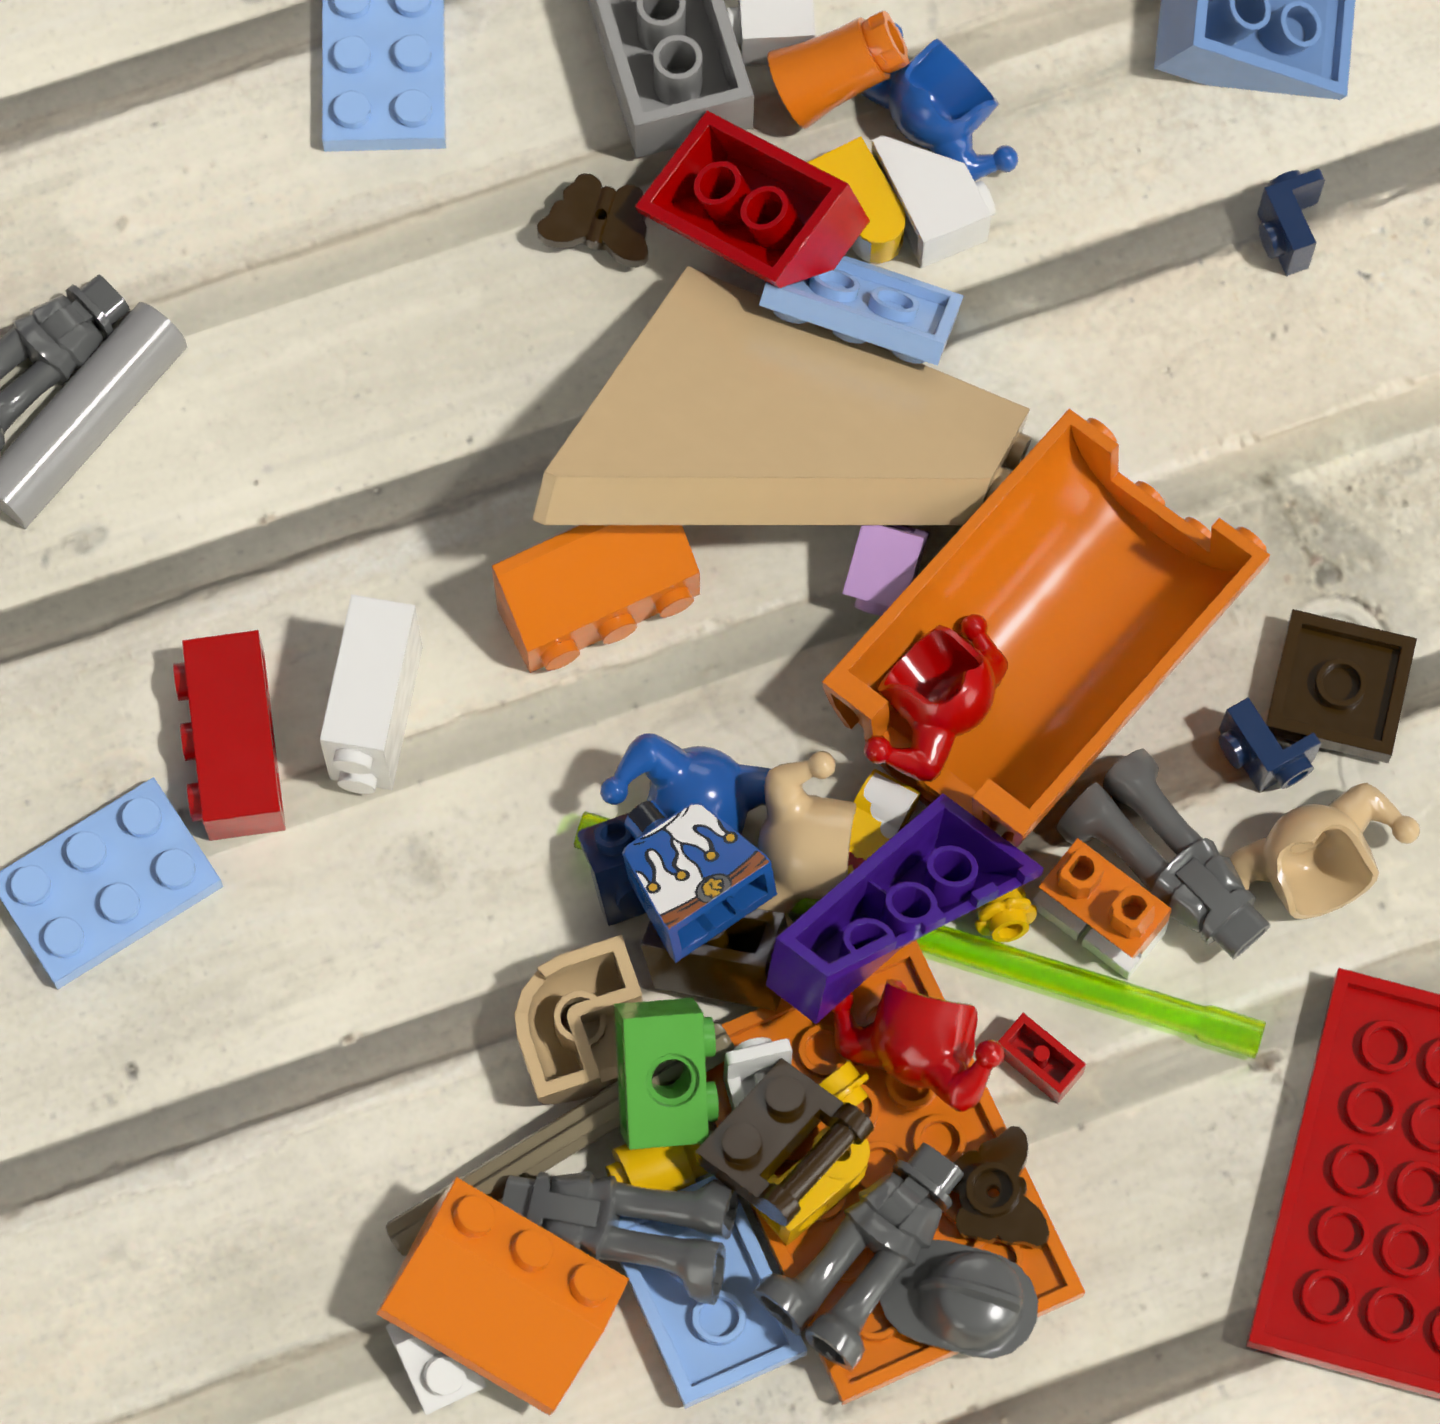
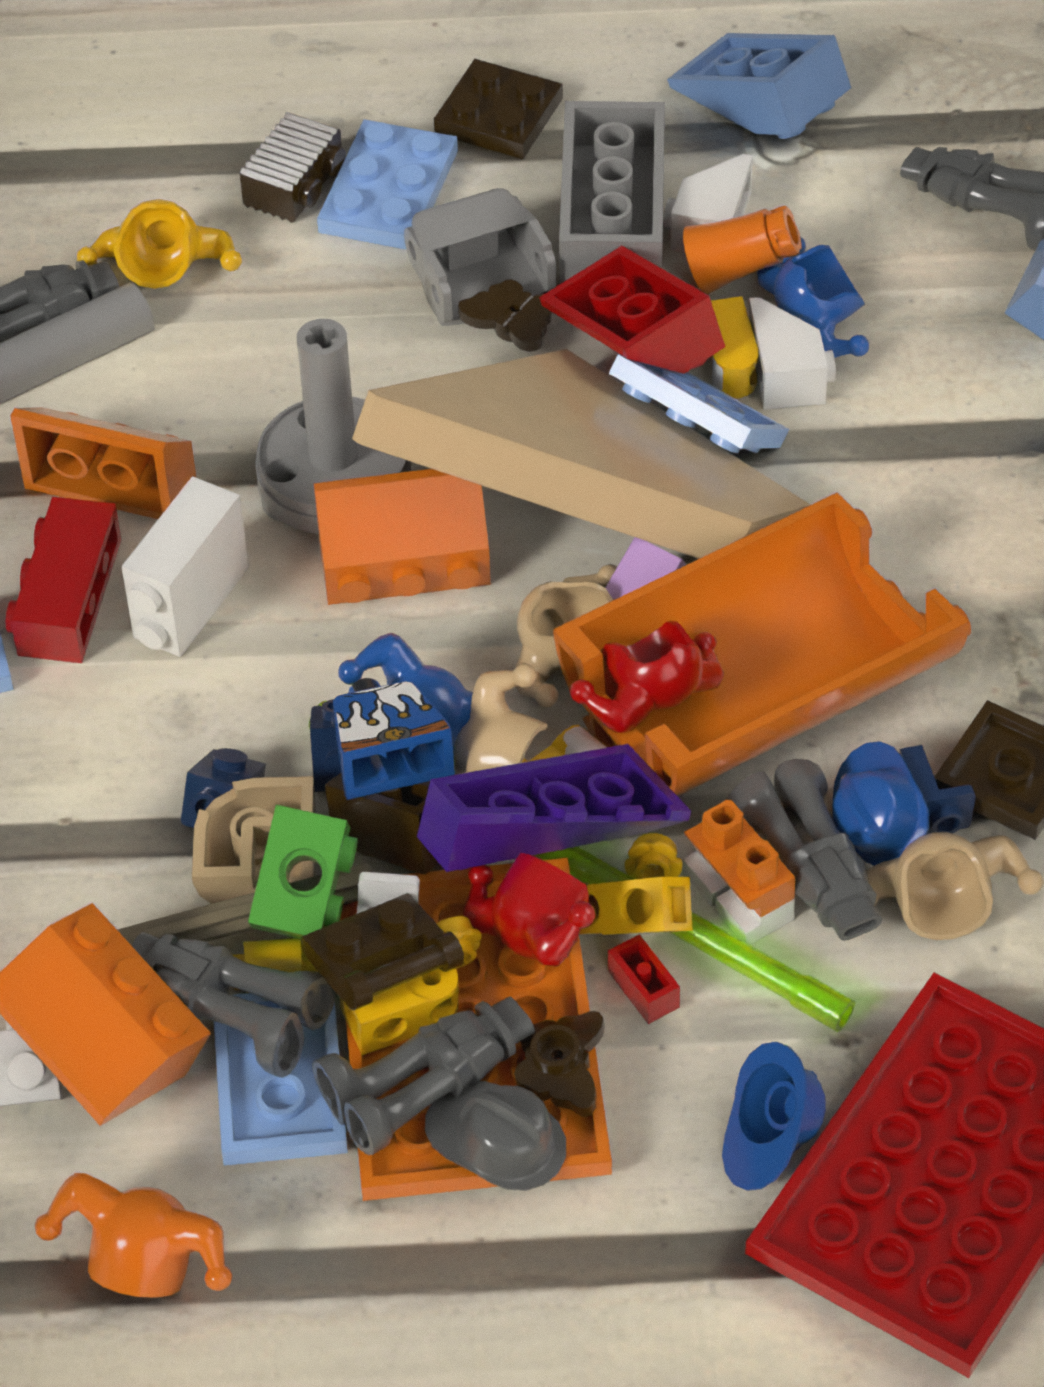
camera: 20 degrees right, 20 degrees down
(156, 237) = (160, 244): none -> yellow piece
(215, 563) = (100, 460): none -> orange slope
(267, 73) = (291, 167): none -> brick
(471, 493) = (314, 437): none -> light grey piece
(508, 954) = (214, 777): none -> dark blue bracket
(530, 144) = (476, 245): none -> light grey piece
(805, 643) = (548, 608): none -> tan piece
(1012, 985) = (640, 906): none -> yellow leg
(1219, 776) = (878, 803): none -> blue piece
(1227, 1194) = (772, 1115): none -> blue piece

